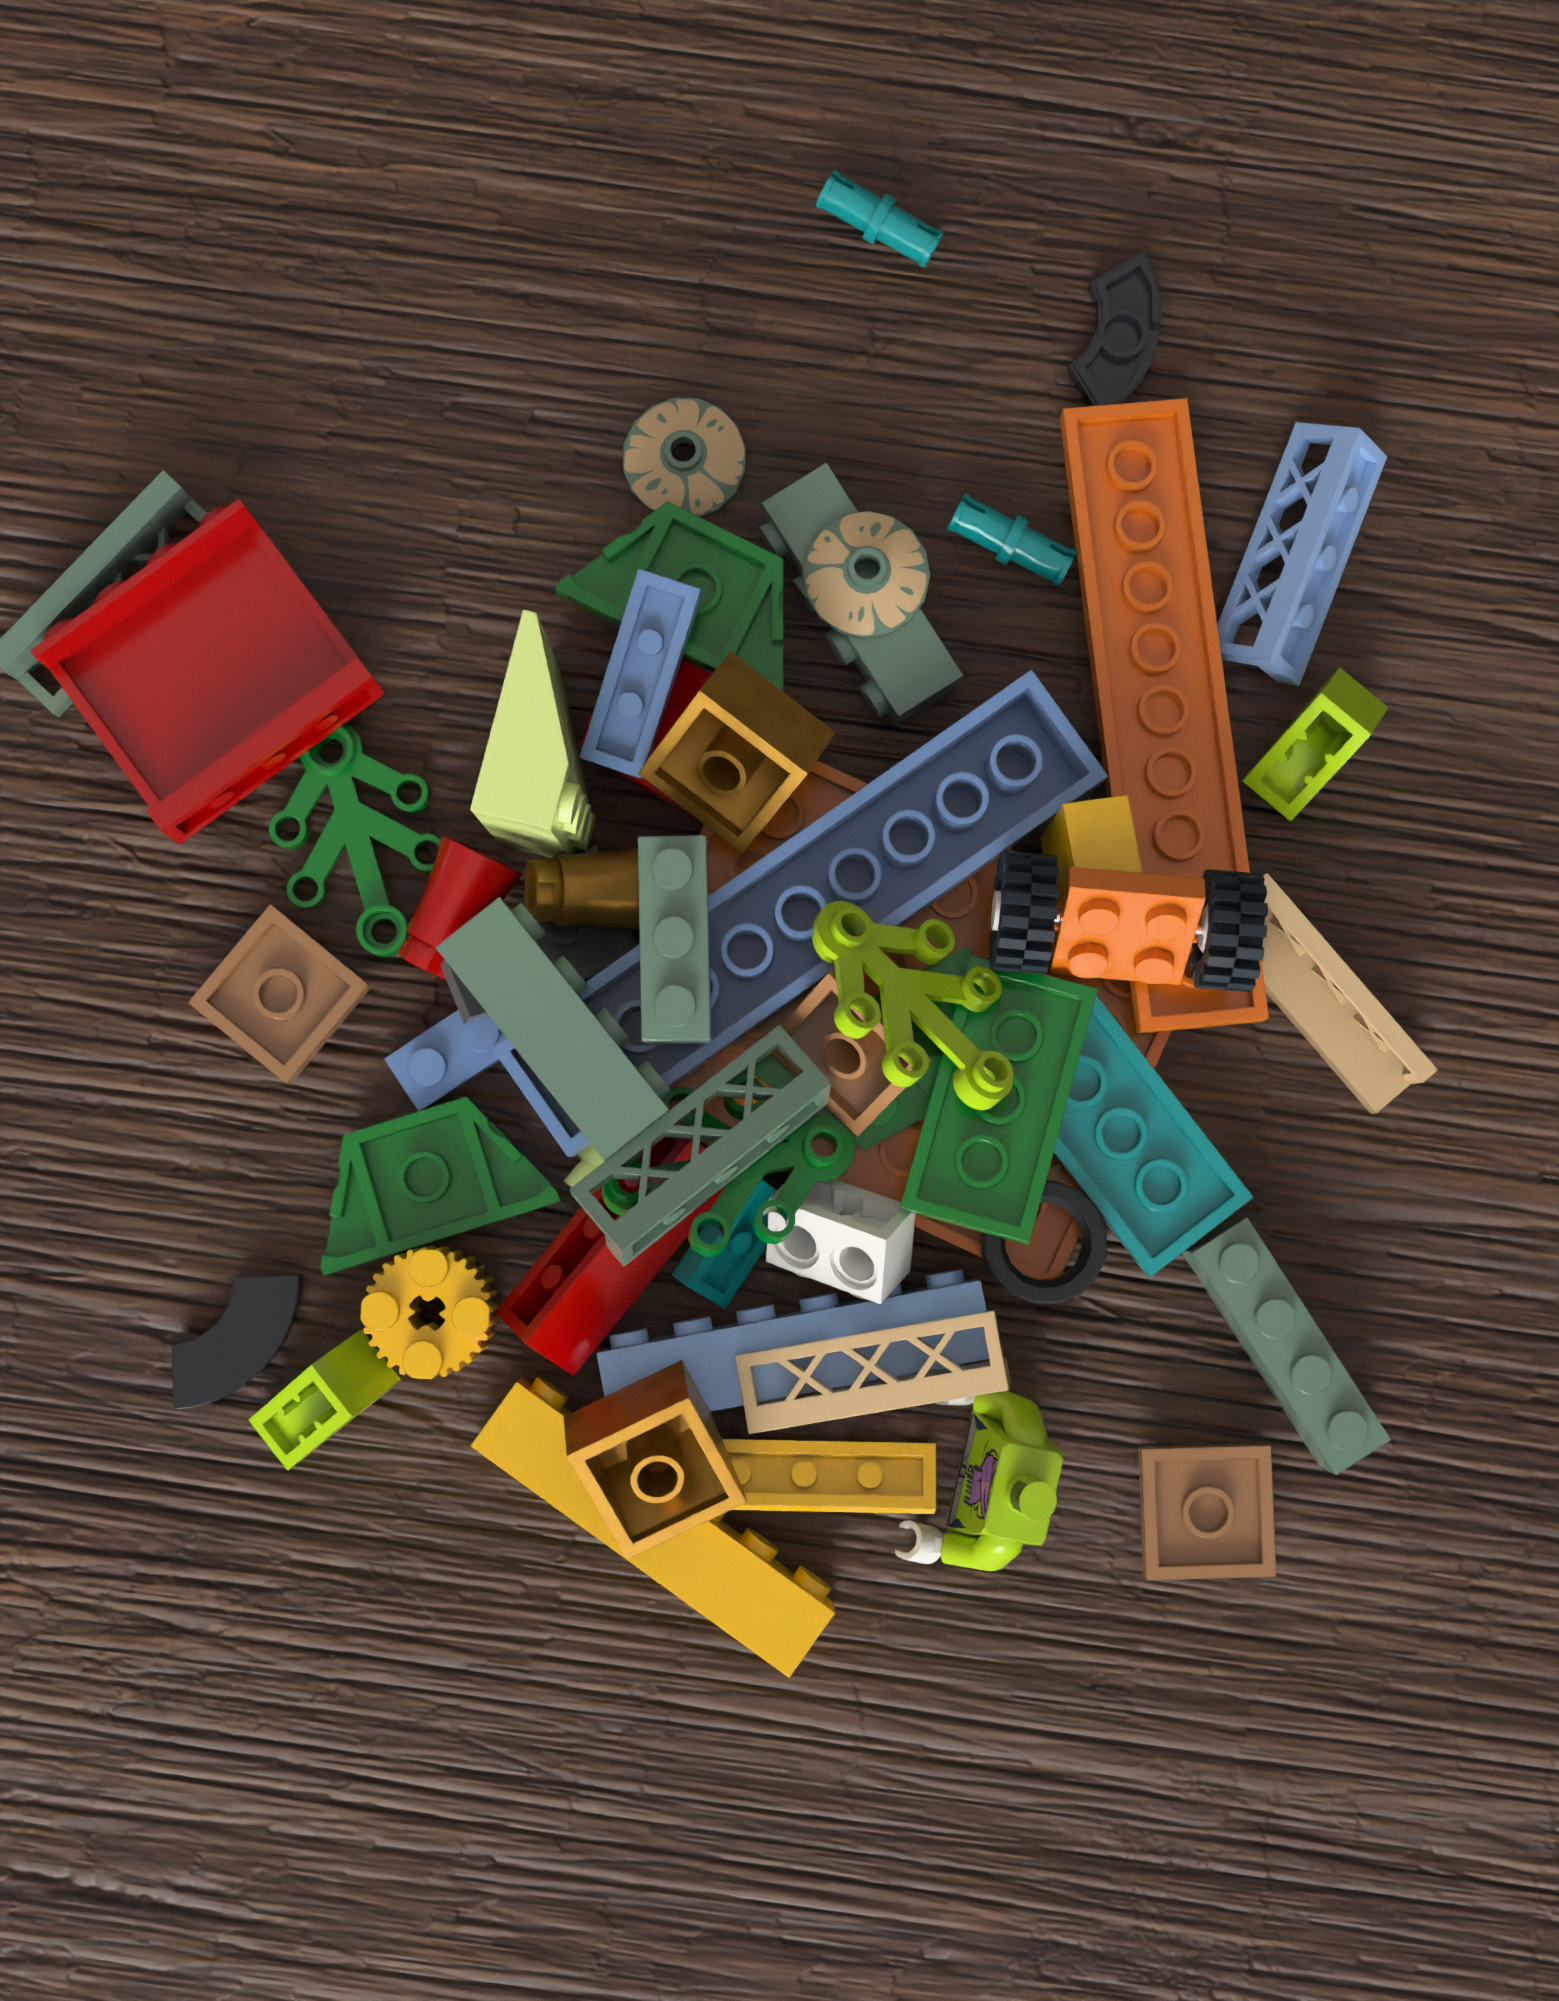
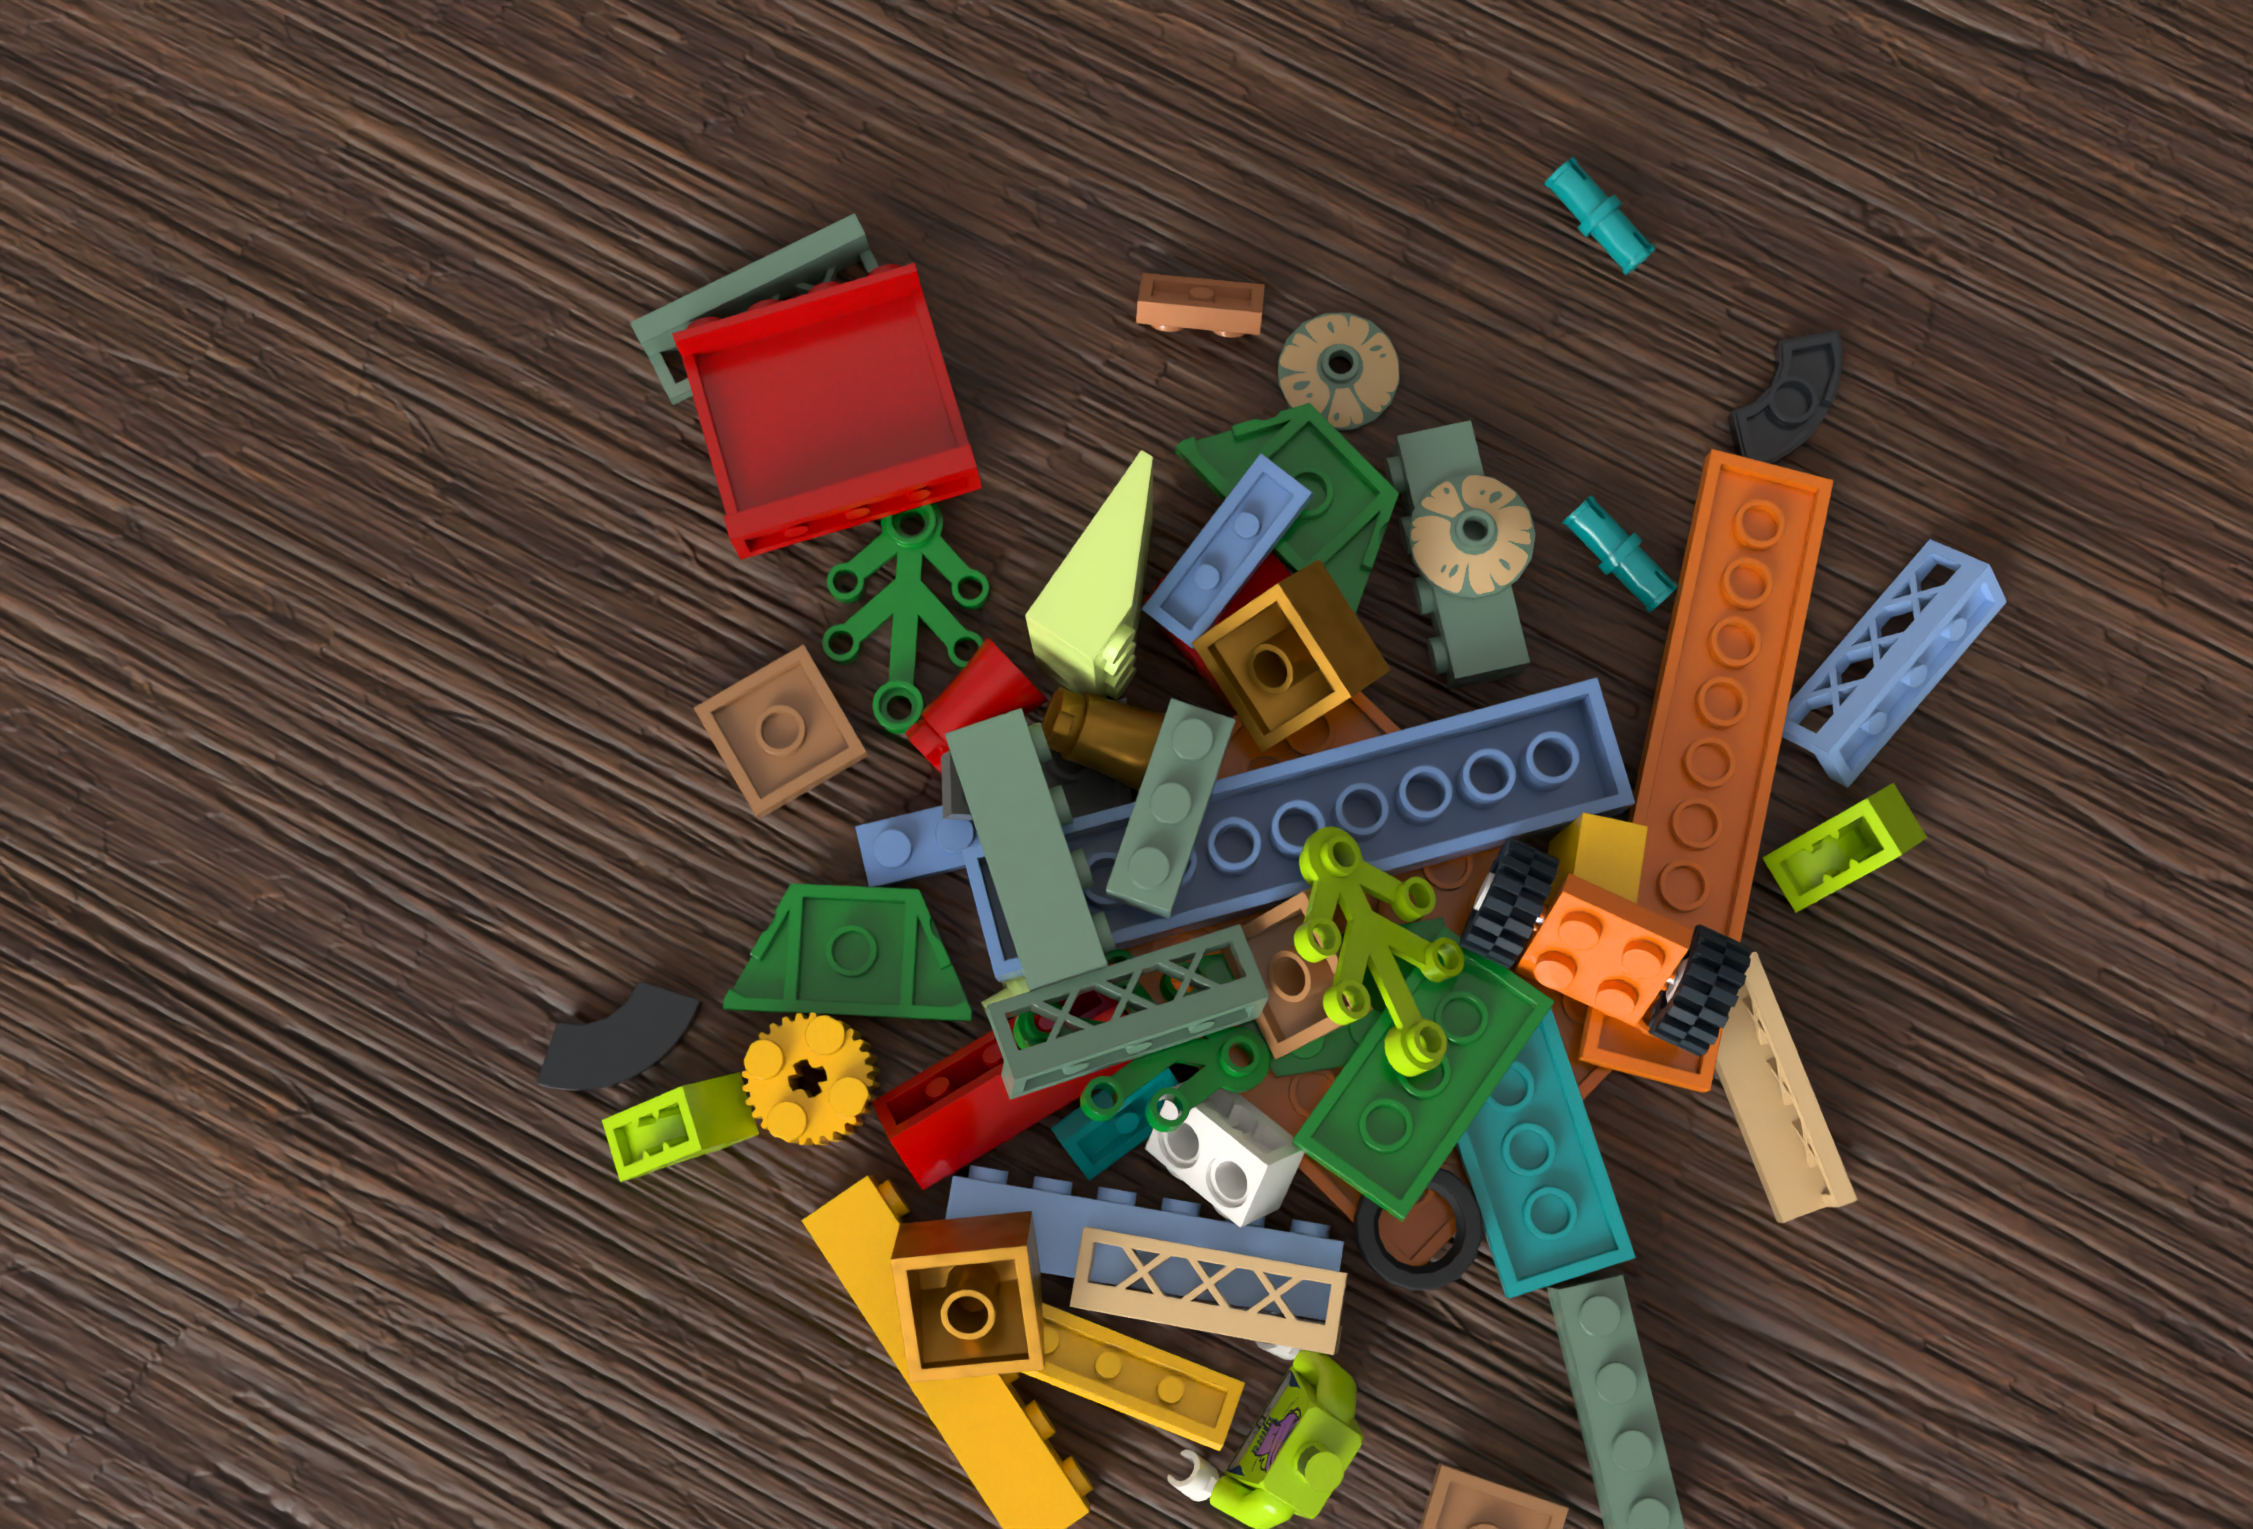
camera: 25 degrees right, 5 degrees down
(528, 440) = (1199, 303): none -> nougat plate

